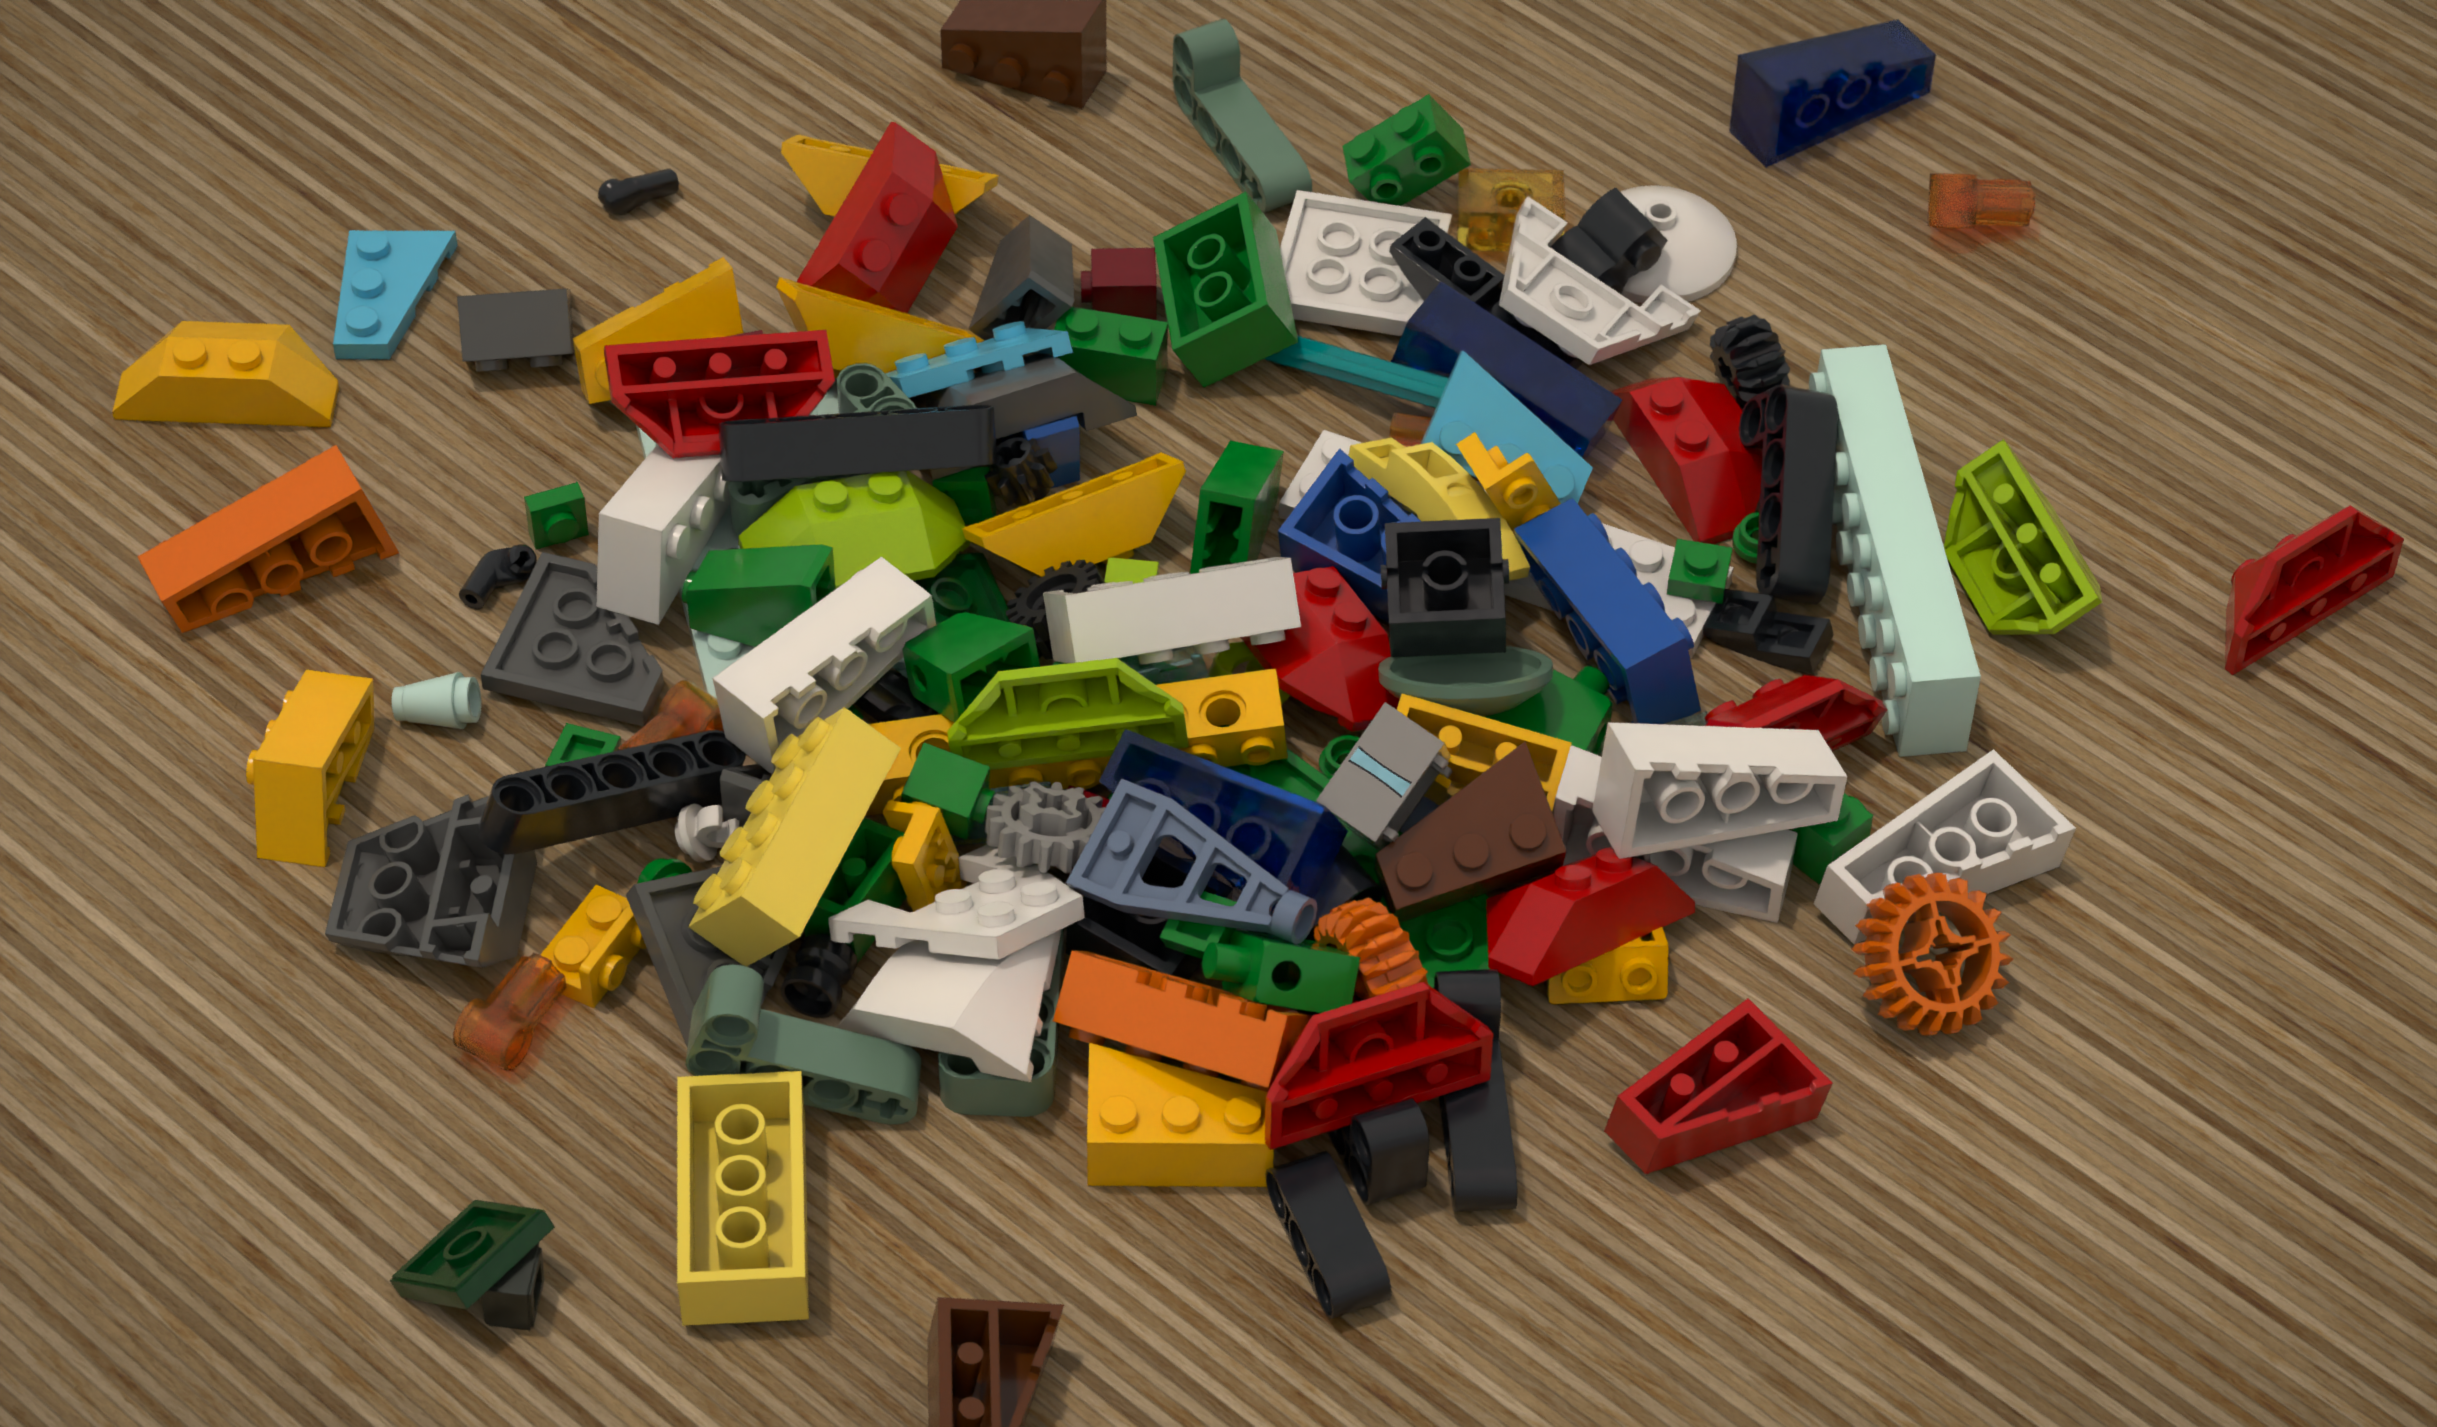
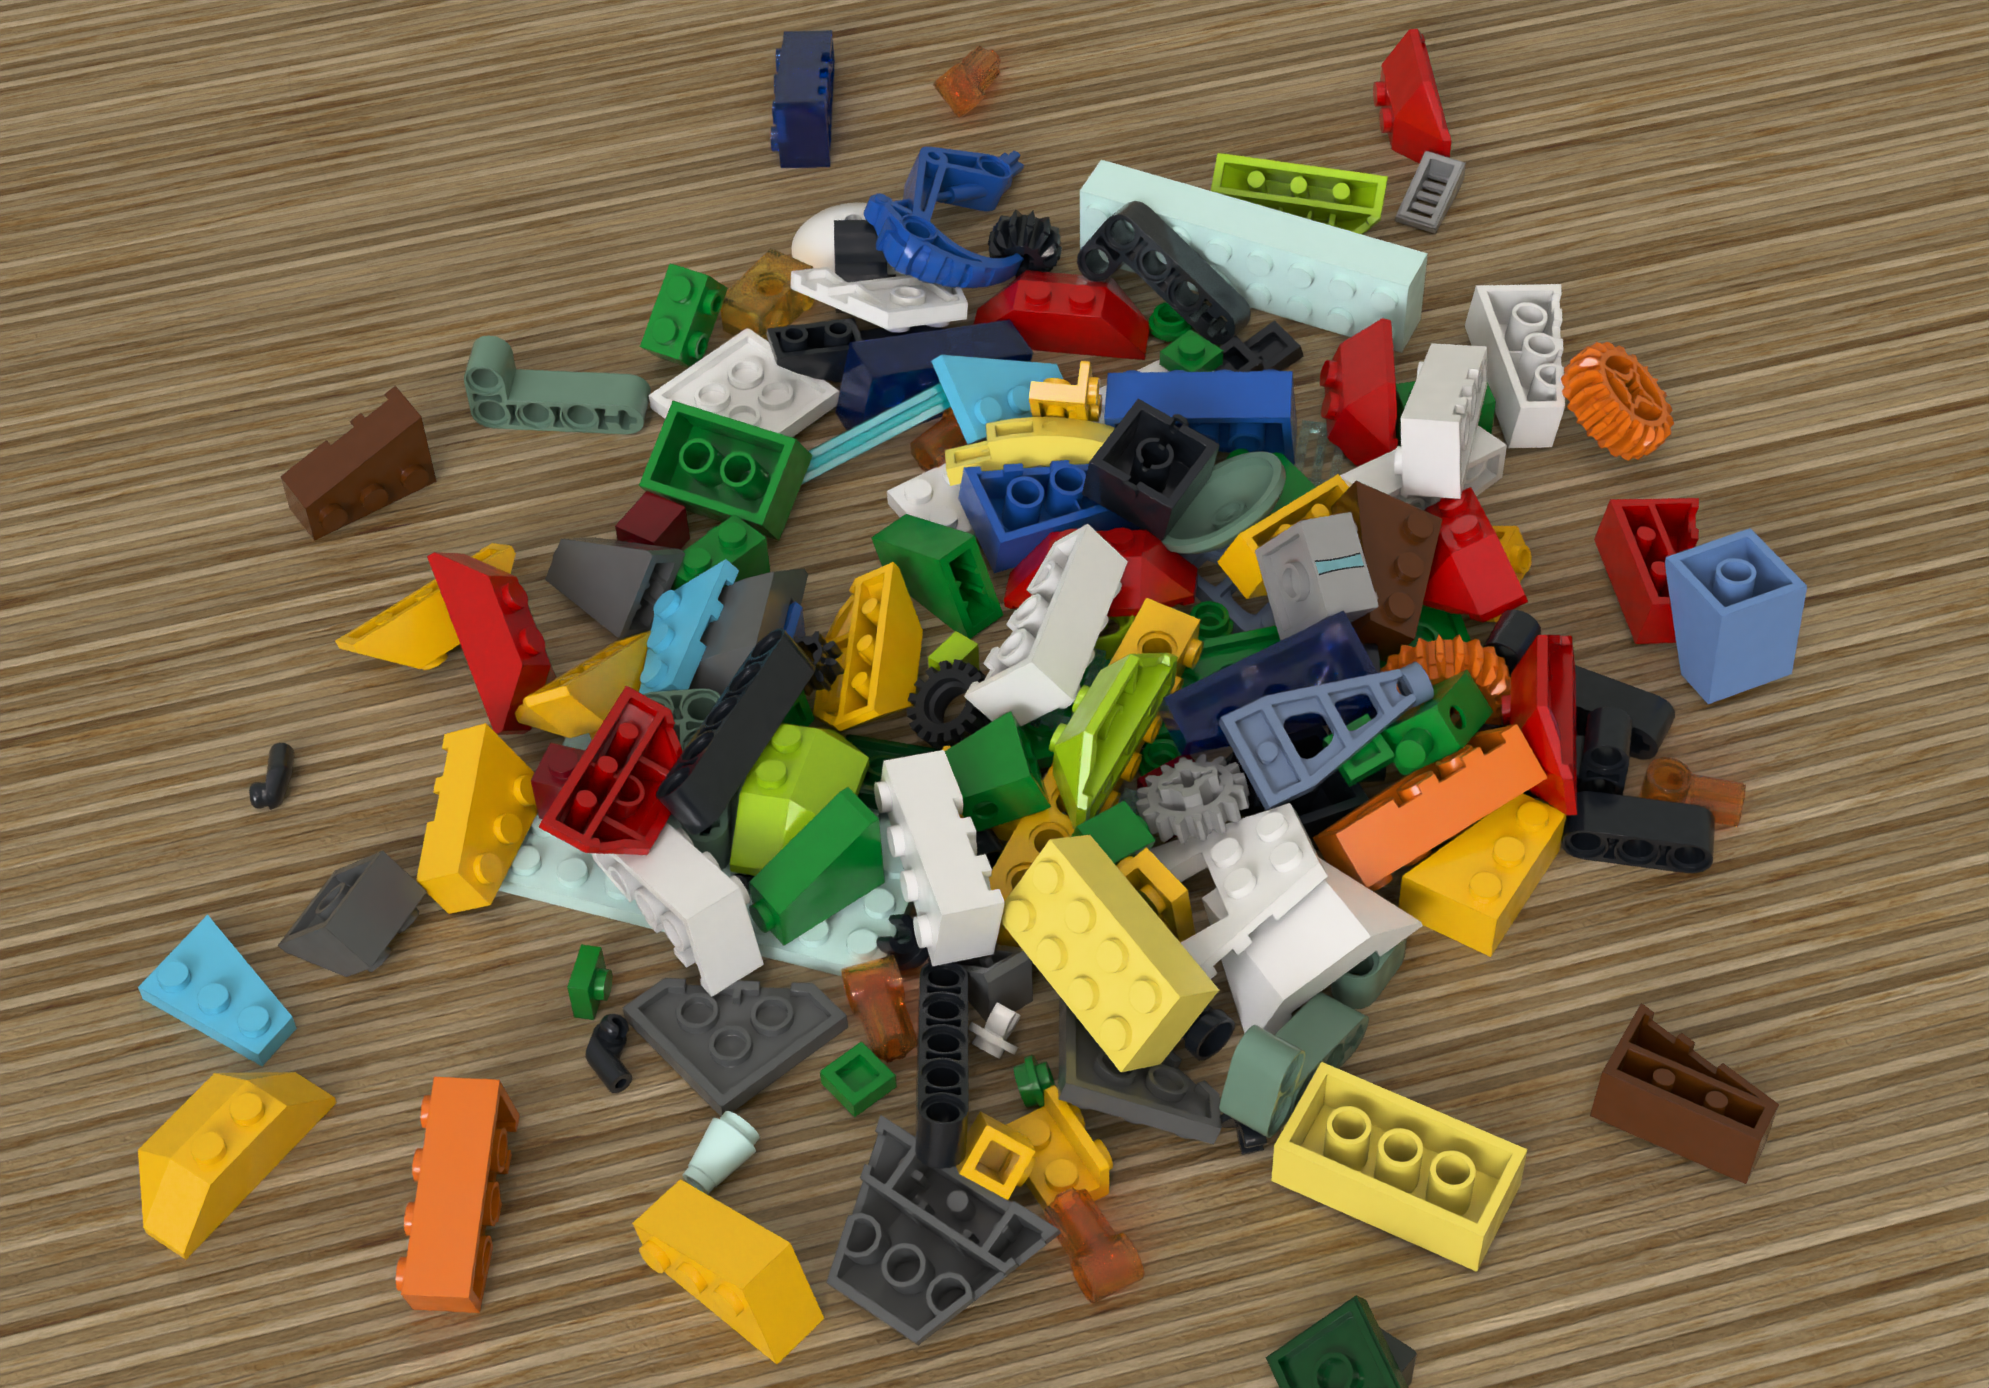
camera: 55 degrees left, 0 degrees up
(541, 883) = (996, 1156): none -> yellow brick
(1413, 1259) = (1673, 782): none -> clear orange piece
(1659, 1172) = (1734, 614): none -> medium blue slope
(1763, 235) = (916, 245): none -> blue piece
(2181, 650) = (1439, 169): none -> light grey slope

